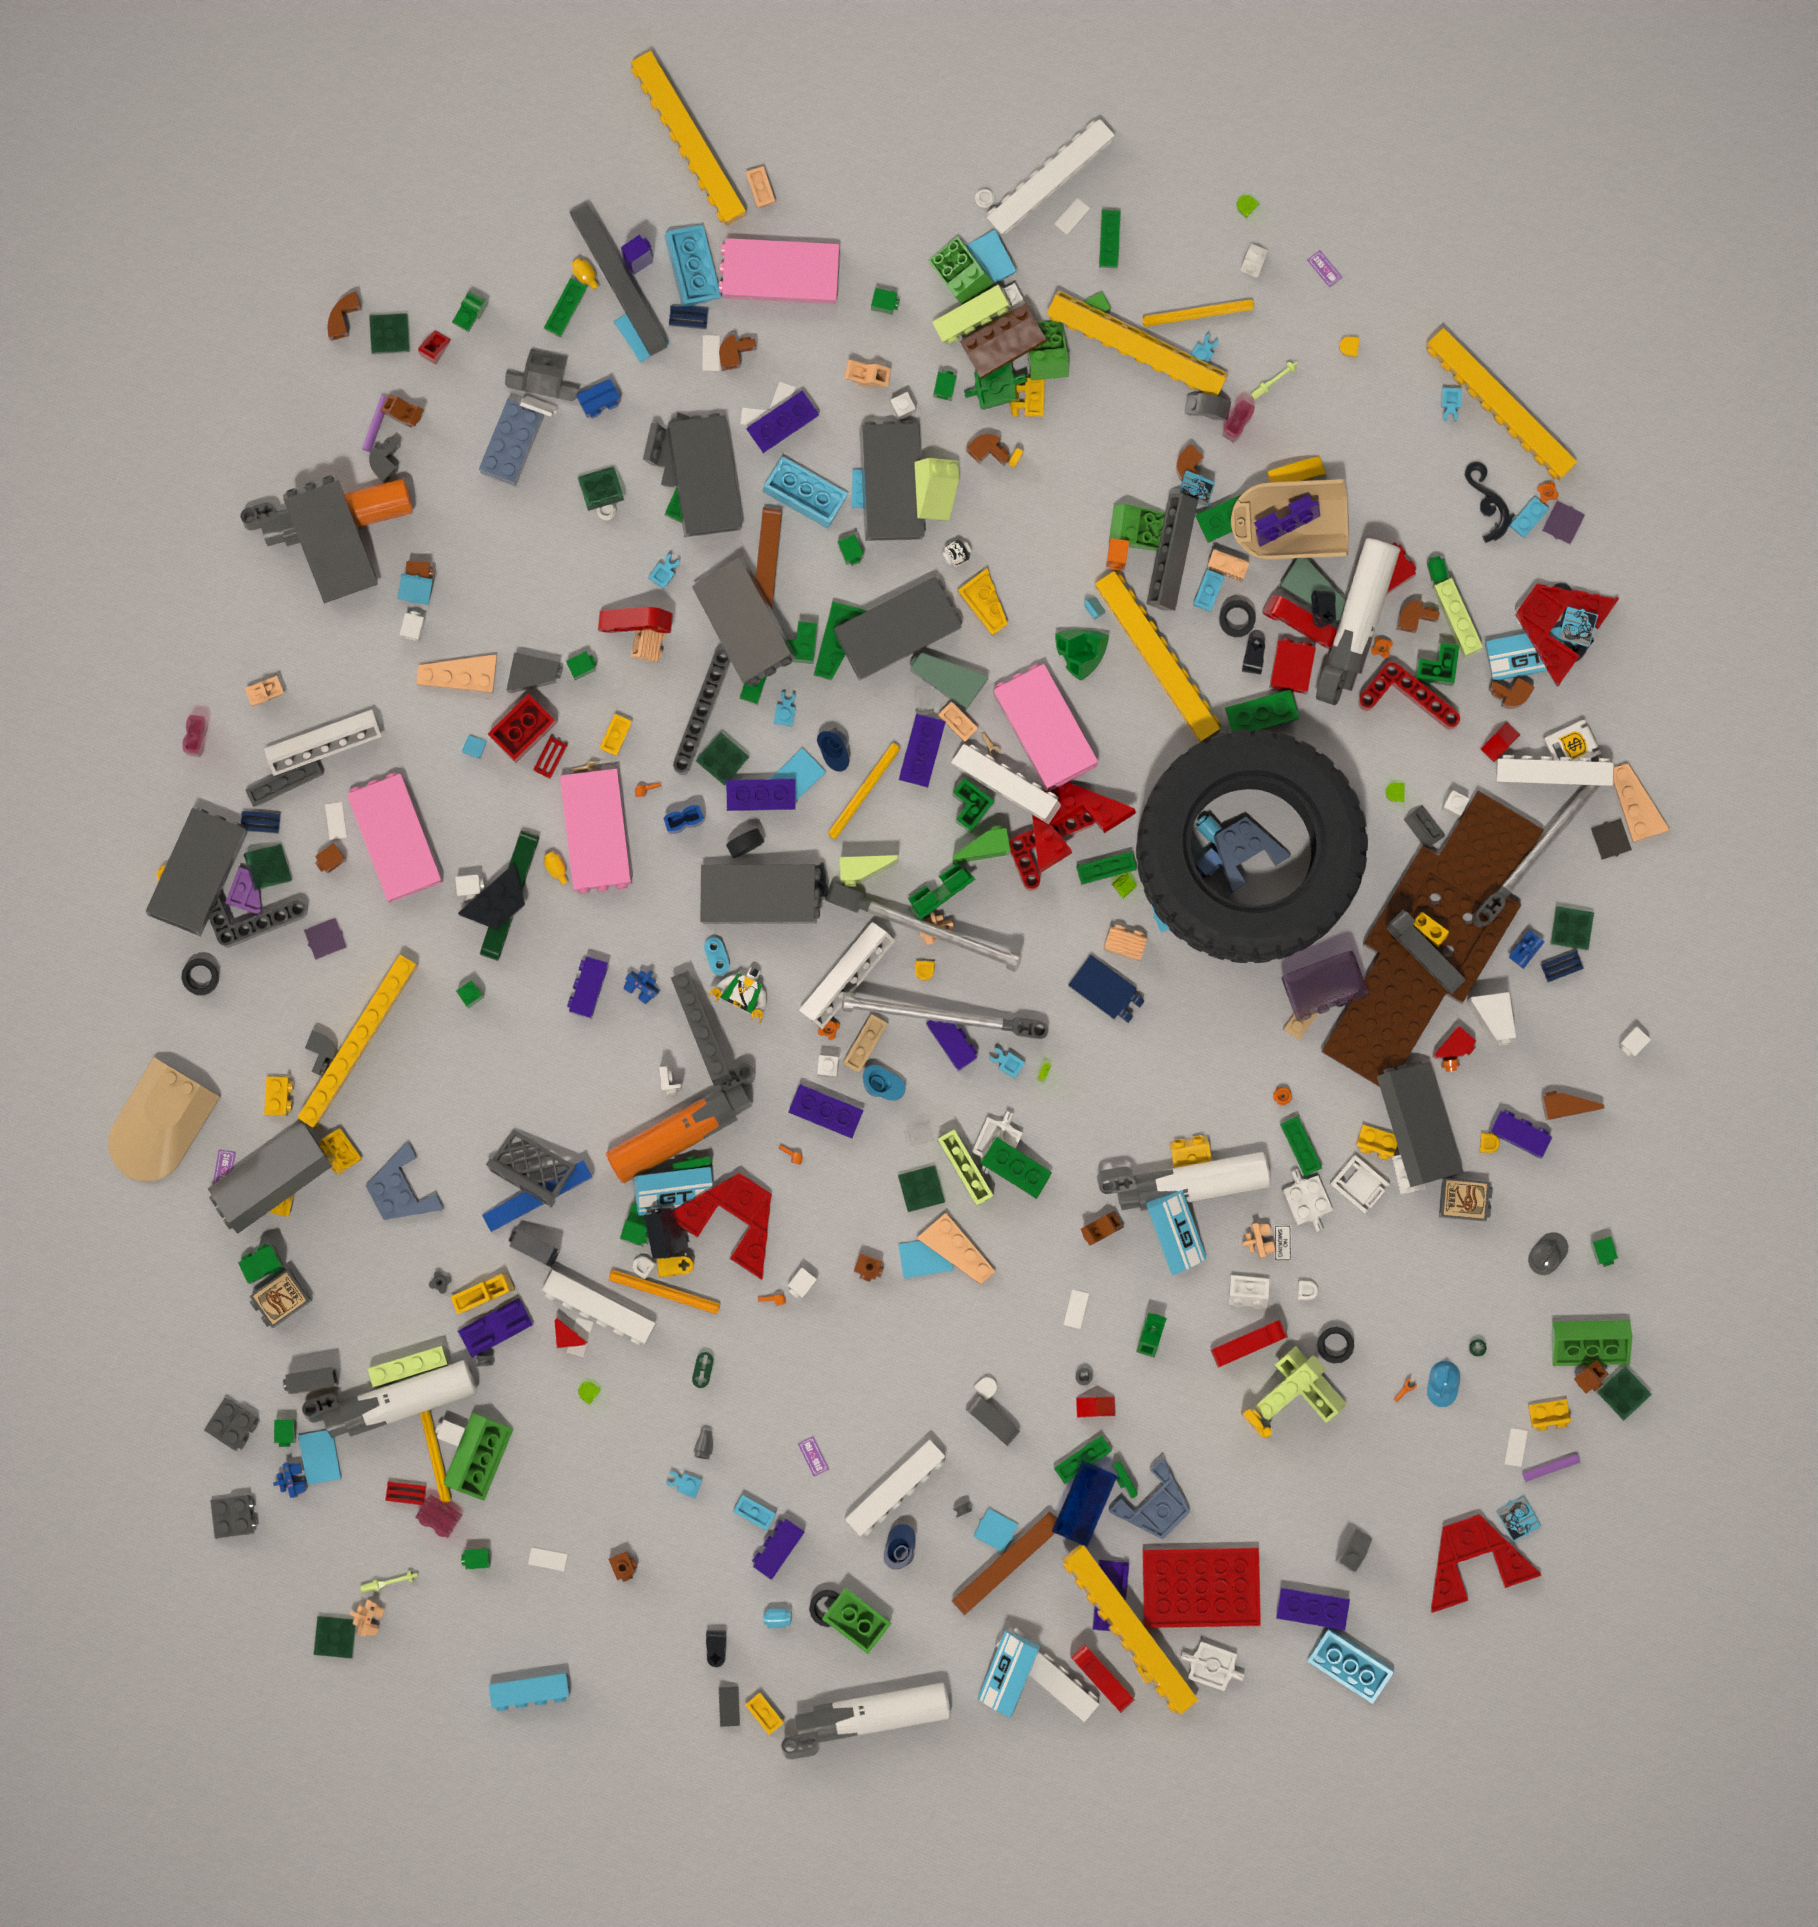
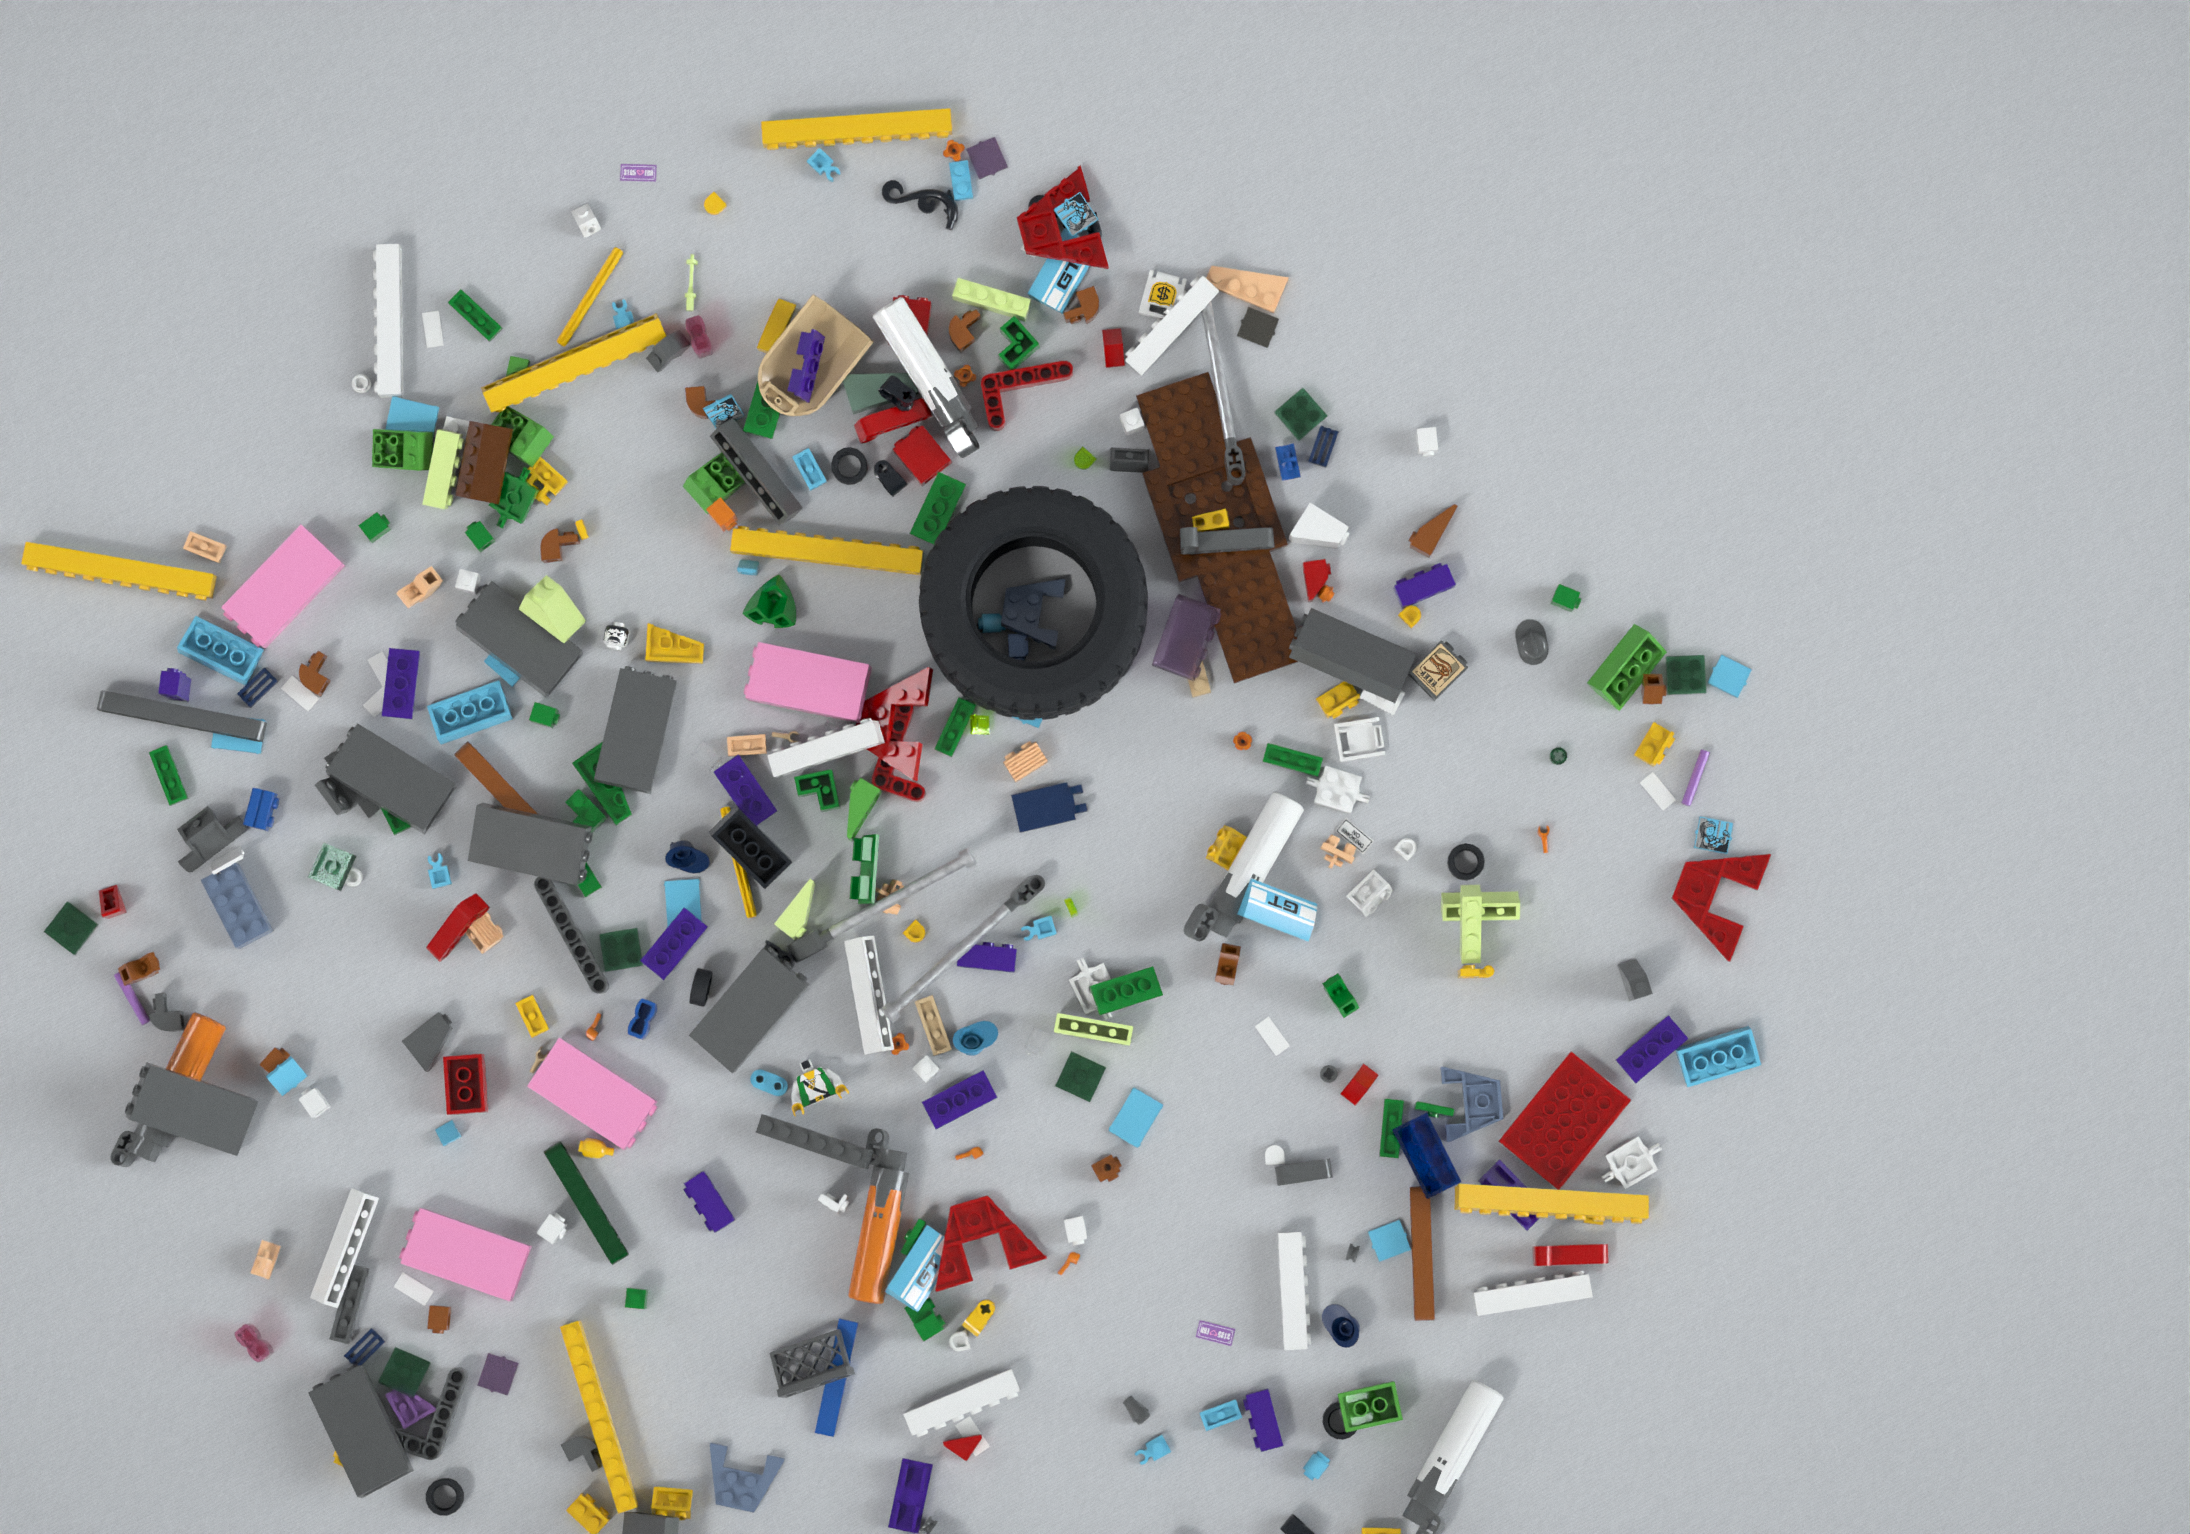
camera: 45 degrees left, 0 degrees up
(336, 323) = (27, 962): dark orange brick -> none
(439, 1277) = (837, 1514): dark grey plate -> none
(460, 674) = (385, 1093): light nougat wing -> none
(471, 309) = (107, 850): green brick -> none
(482, 1293) = (875, 1483): yellow slope -> none
(497, 901) = (582, 1217): black wing -> none
(534, 1247) = (874, 1414): black slope -> none
(543, 772) = (500, 1066): red tile -> none
(581, 665) = (455, 997): green brick -> none
(584, 272) = (154, 737): yellow plant -> none
(588, 1391) = (1020, 1465): clear neon green tile -> none
(644, 983) = (740, 1156): blue hips -> none
(663, 1291) = (993, 1341): light orange axle -> none
(664, 1233) = (948, 1304): black slope -> none
(707, 1371) = (1082, 1360): clear green beam -> none
(785, 713) = (627, 871): medium azure plate -> none
(883, 790) = (750, 847): none -> black brick
(951, 680) = (710, 723): sand green slope -> none
(954, 1246) = (1145, 1089): light nougat wing -> none
(1009, 1673) = (1507, 1323): medium azure slope -> none
(1228, 565) = (803, 438): light nougat brick -> none
(1246, 205) = (539, 190): clear neon green tile -> none
(1249, 1343) = (1409, 926): red beam -> none
(1437, 569) = (942, 283): green brick -> none
(1443, 1383) = (1563, 805): dark azure piece -> none
(1652, 1428) = (1729, 676): none -> medium azure piece

